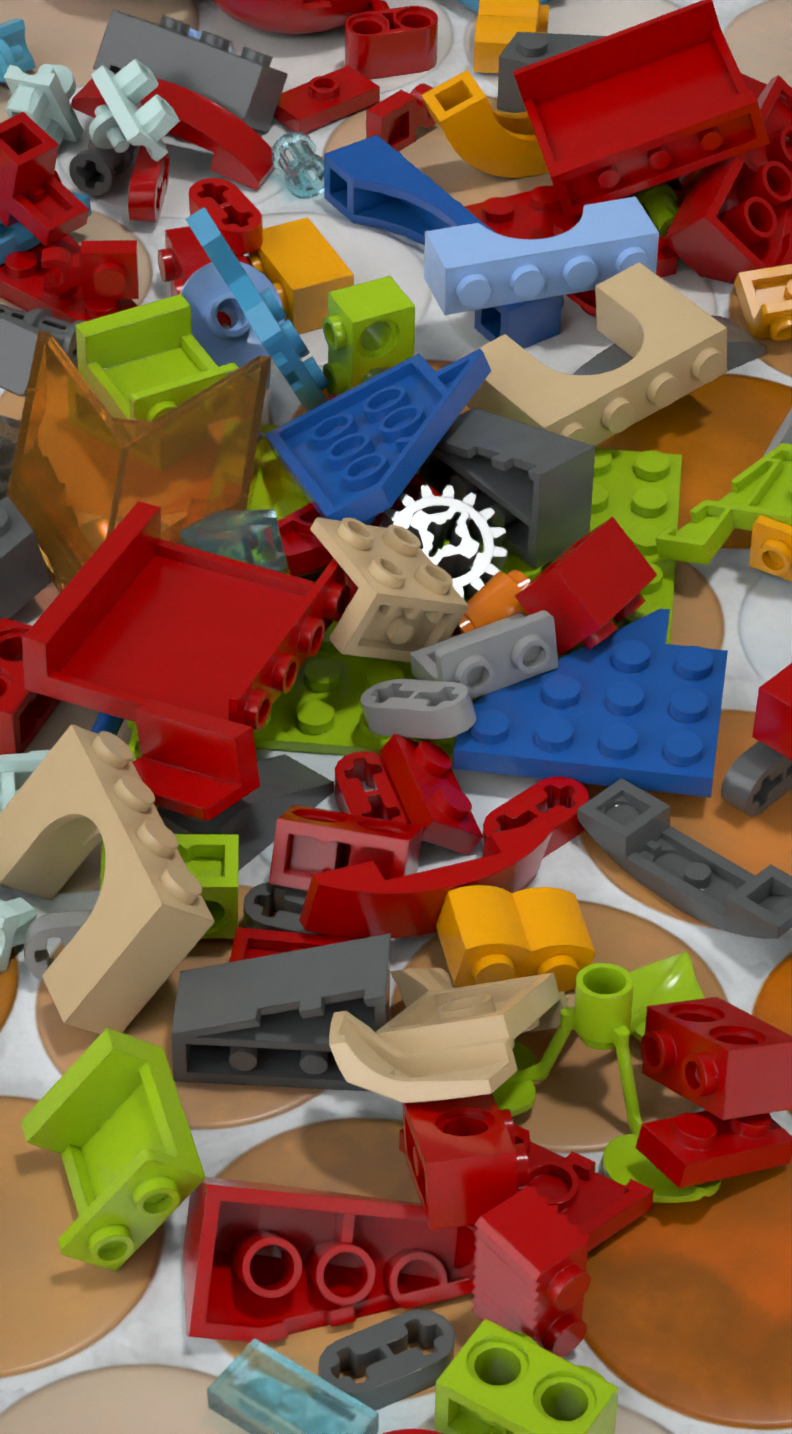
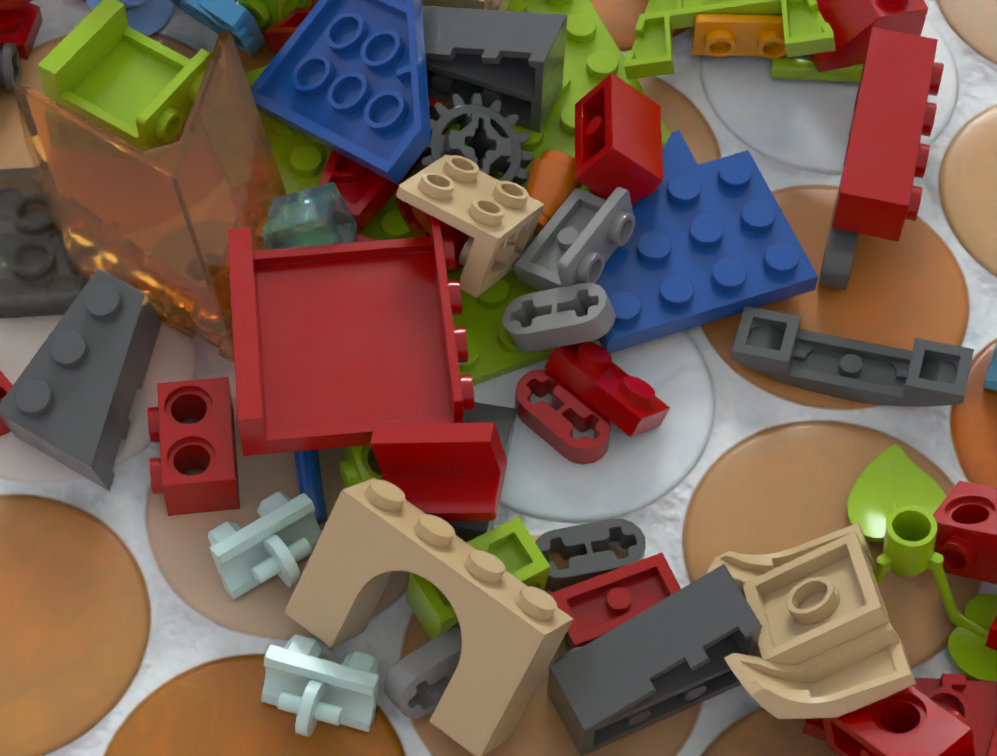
camera: 30 degrees left, 15 degrees up
(324, 840) = (592, 483): red brick -> none
(363, 904) = (653, 524): red slope -> none
(513, 935) = (770, 499): light orange brick -> none
(532, 807) = (708, 377): red beam -> none

